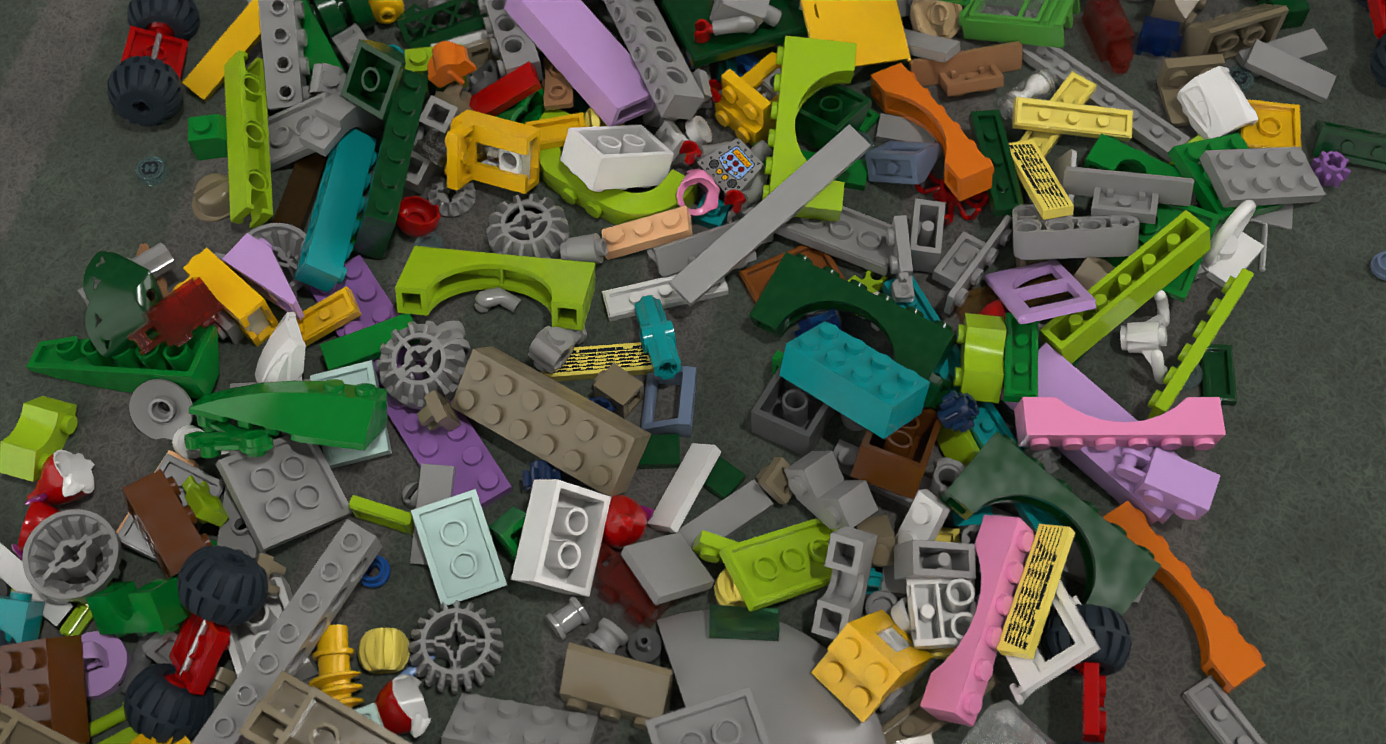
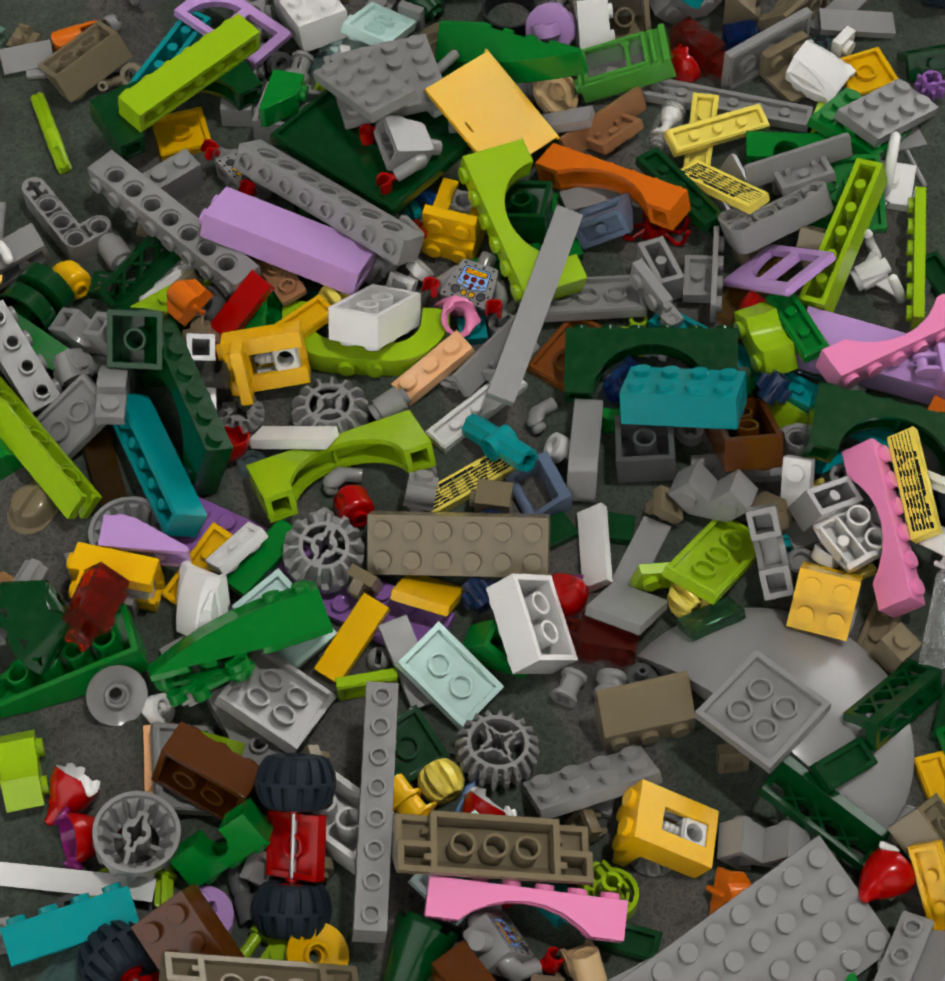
camera: 30 degrees left, 5 degrees down
(336, 326) = (236, 548): none -> white plate
(380, 600) = (415, 744): none -> dark green tile
(398, 463) = (352, 638): none -> yellow tile
(475, 240) = (294, 437): none -> white tile
(488, 329) = (354, 504): none -> red head
(492, 455) = (427, 594): none -> yellow tile
(714, 369) = (557, 447): none -> white tile
(718, 324) = (537, 414): none -> light grey arm
(734, 382) = (584, 449): none -> light grey beam
(1079, 40) = (685, 65): none -> red hair
(1142, 60) = (743, 60): none -> light grey tile
(1262, 86) = (844, 42): none -> white plate

